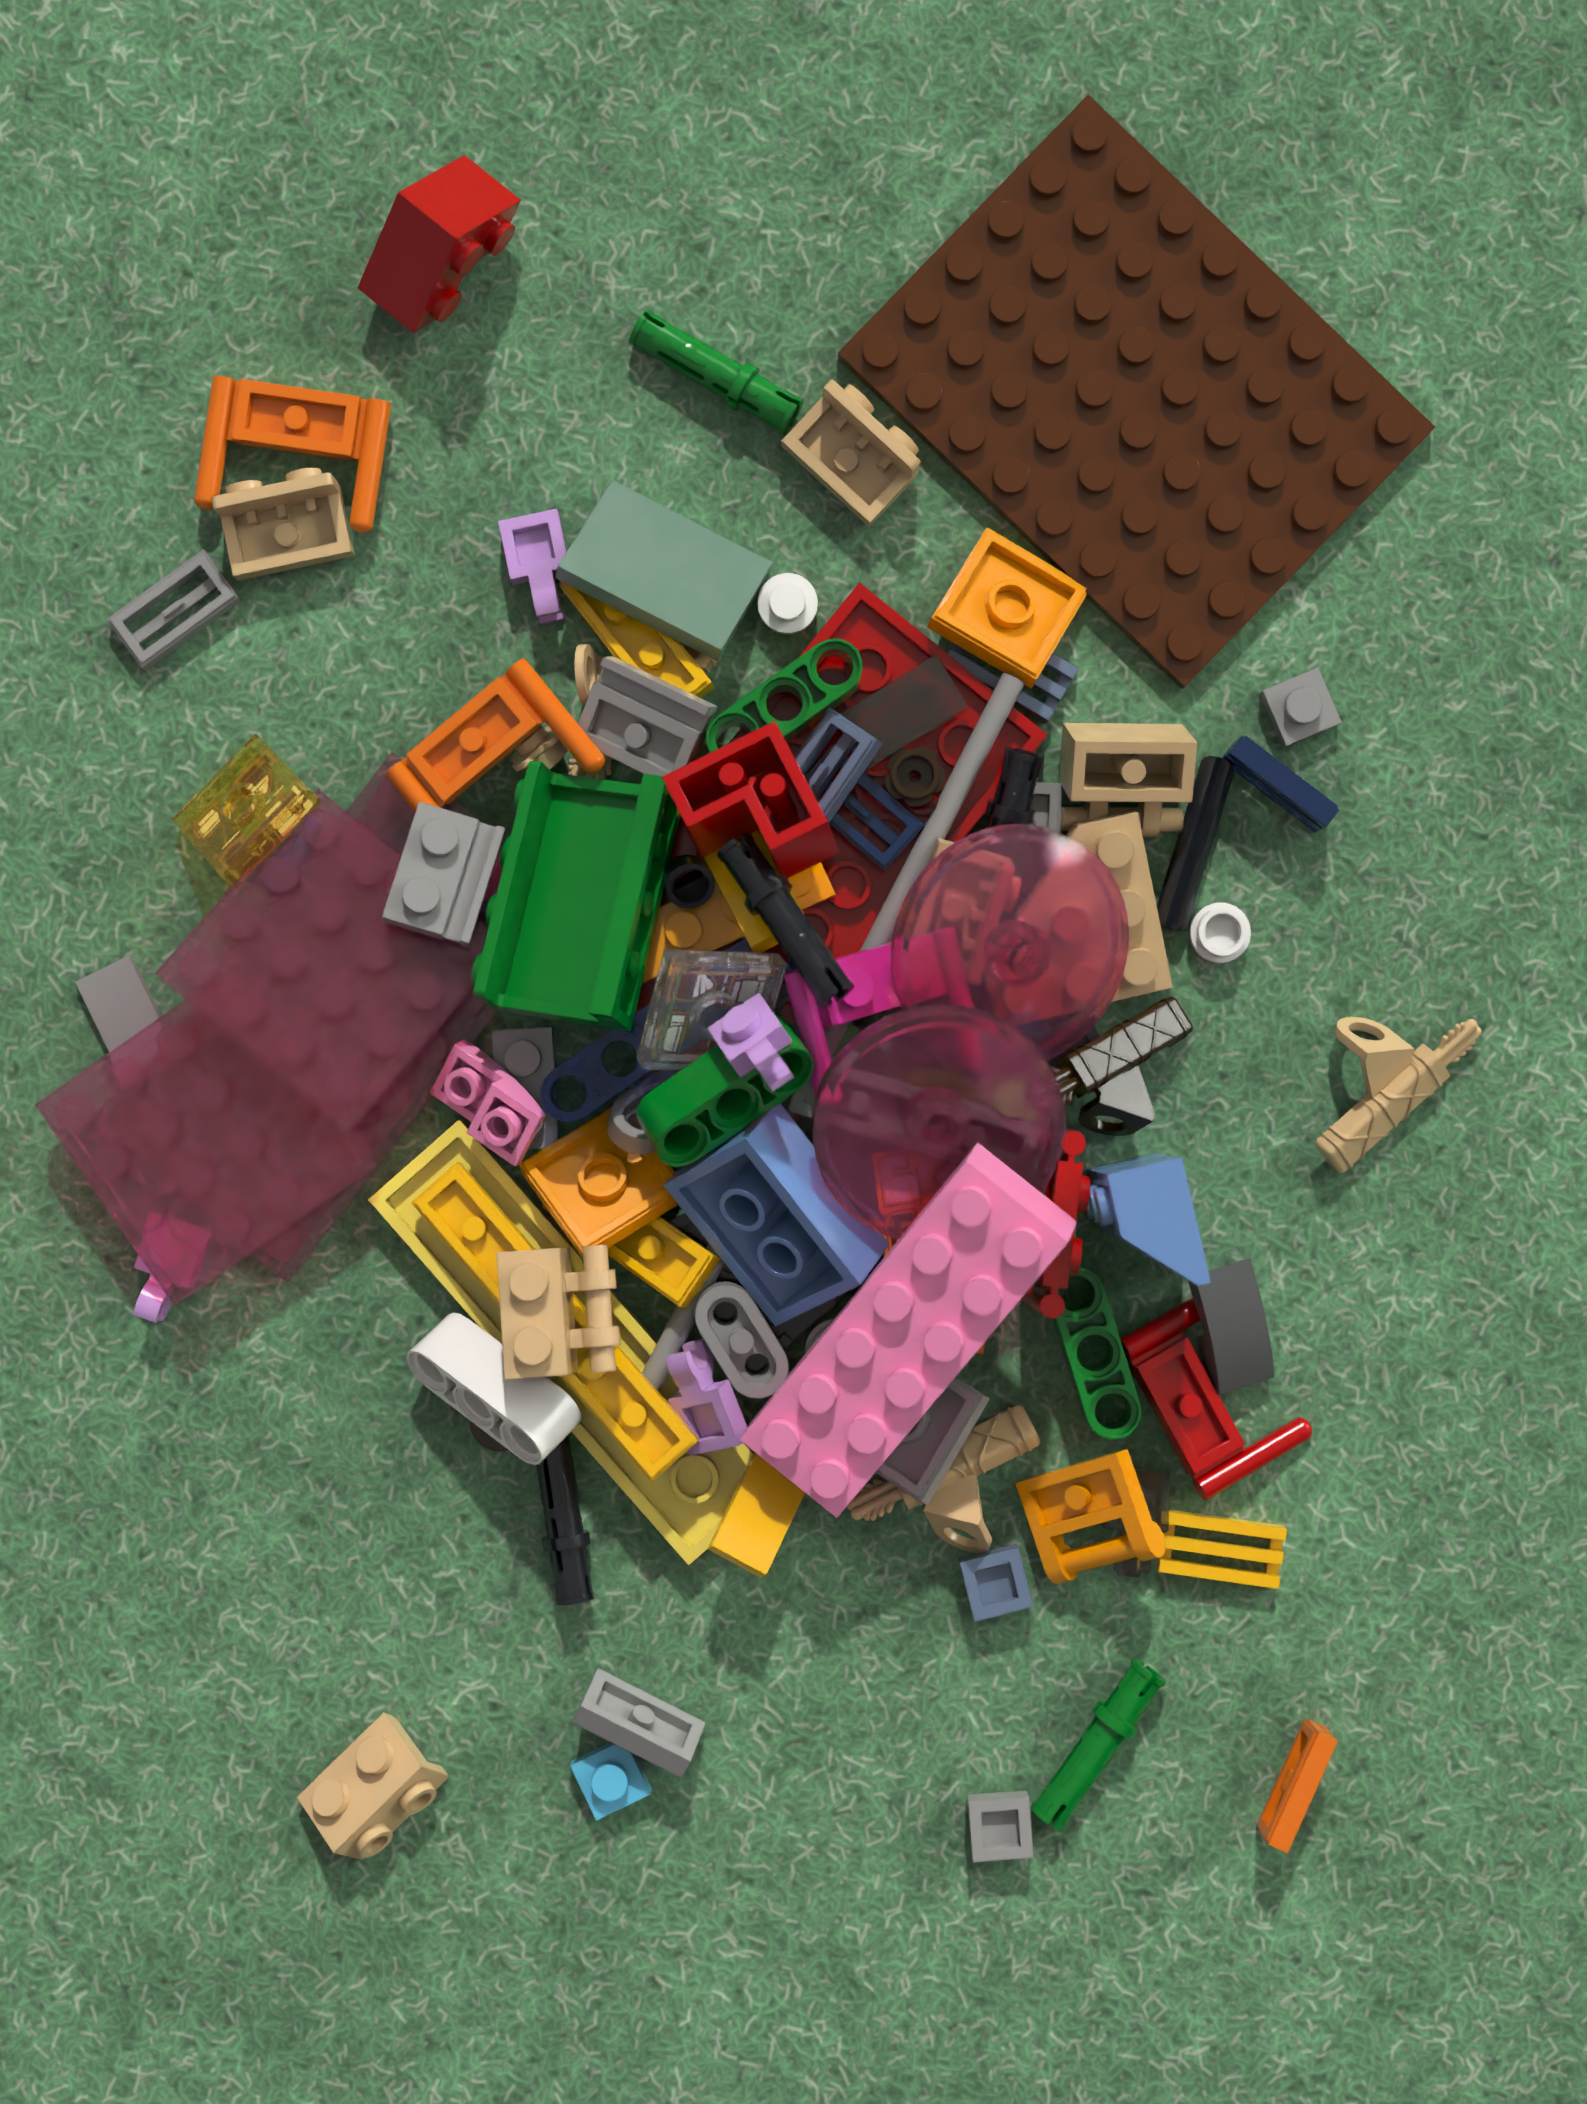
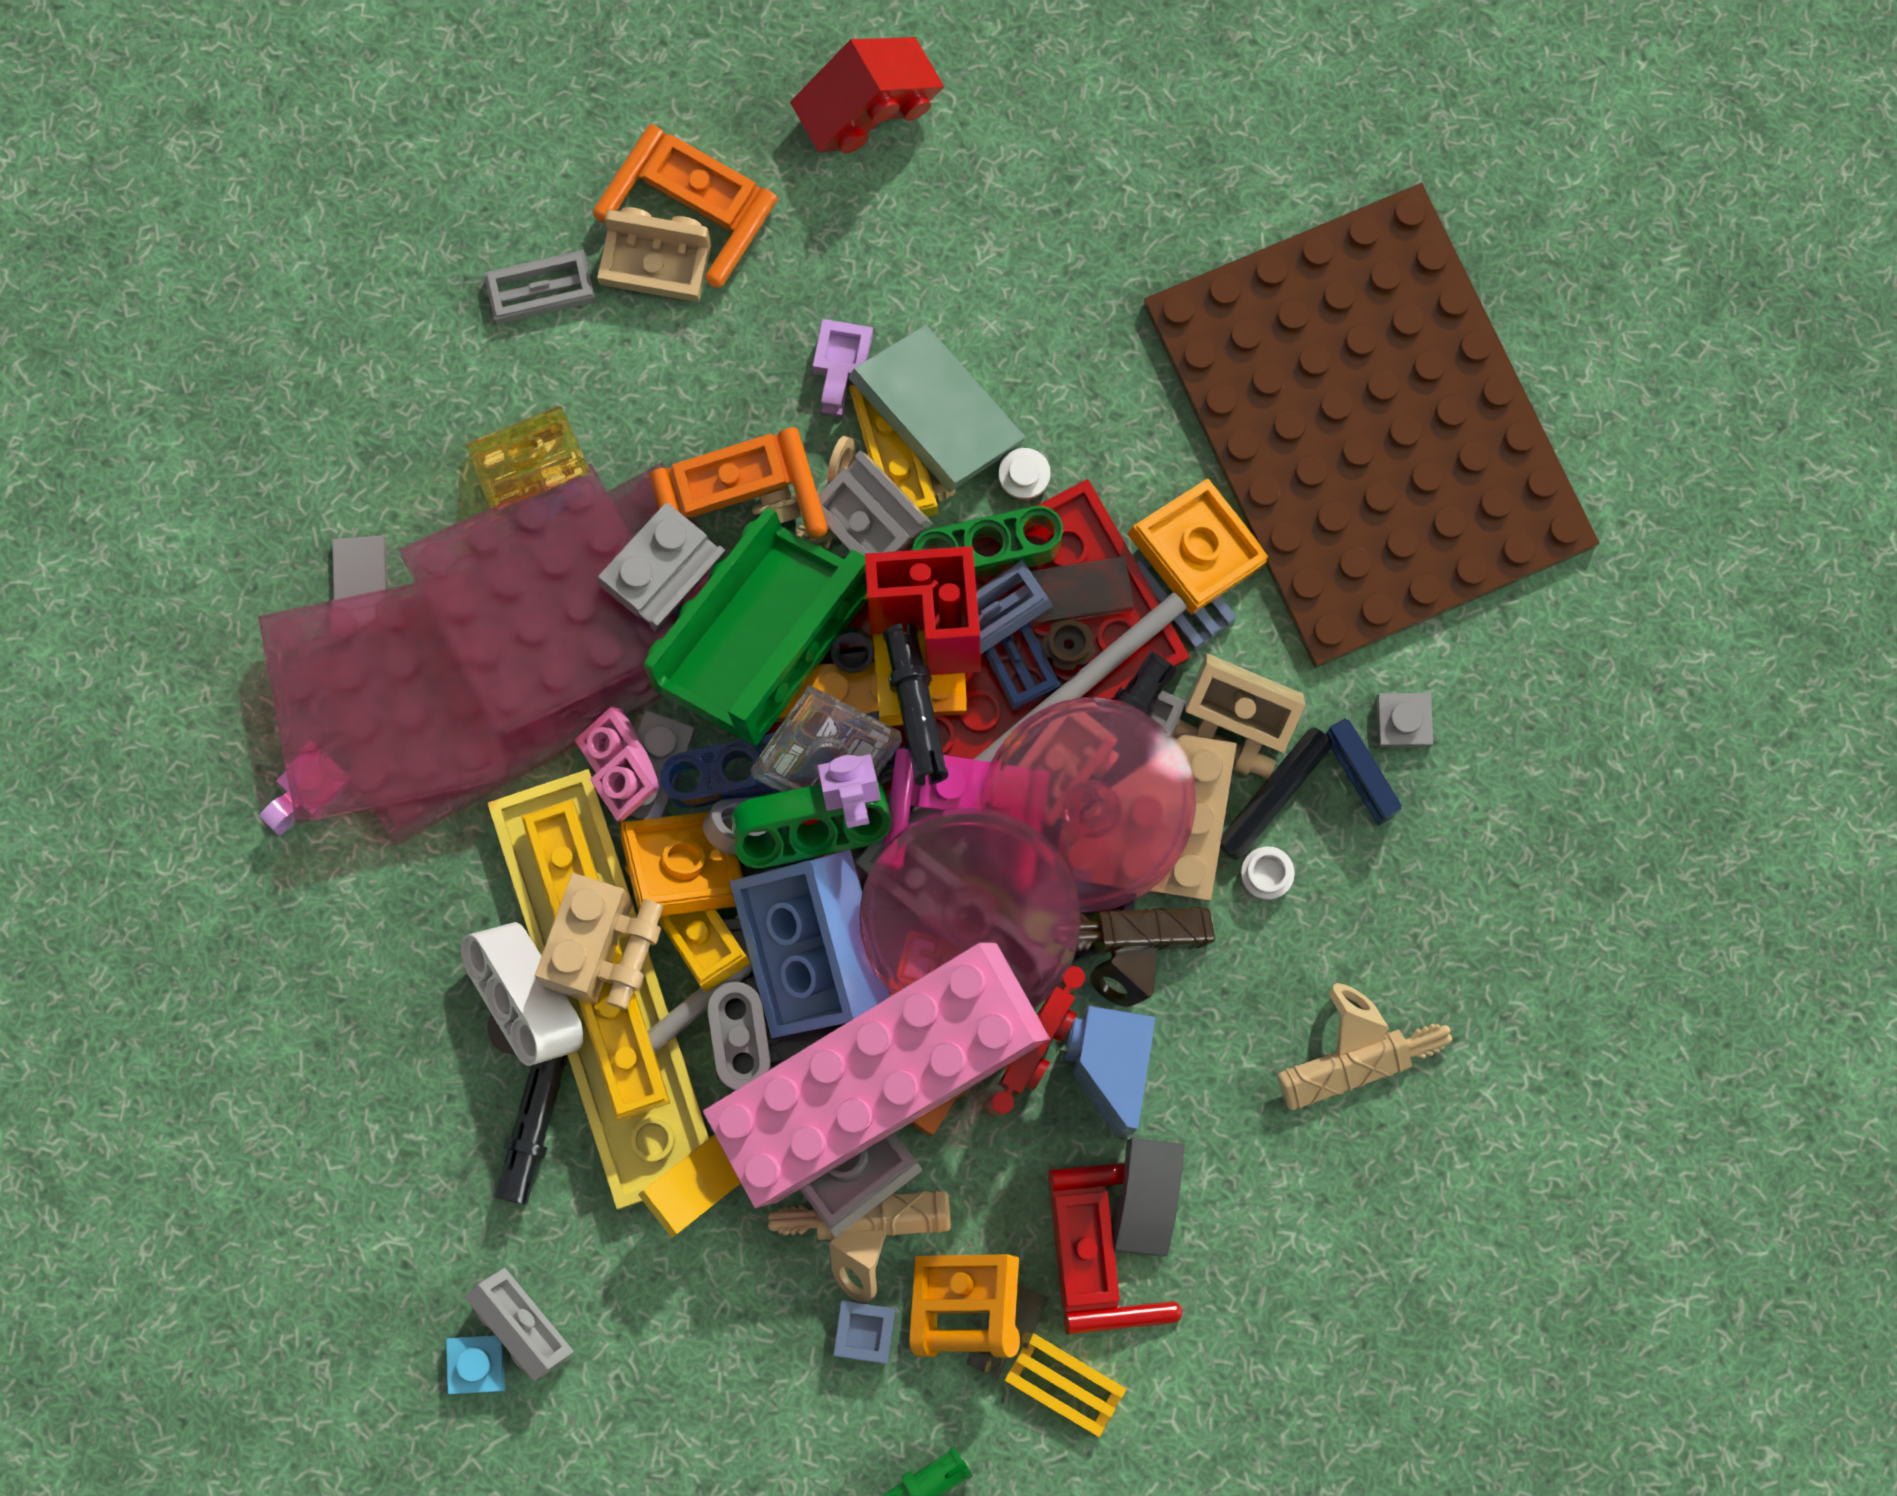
camera: 20 degrees right, 10 degrees down
(371, 1790) = (274, 1290): tan bracket -> none
(704, 1405) = (685, 1076): lavender plate -> none
(734, 382) = (1055, 291): green pin -> none
(853, 452) = (1125, 378): tan bracket -> none
(1109, 1375) = (1033, 1143): green beam -> none

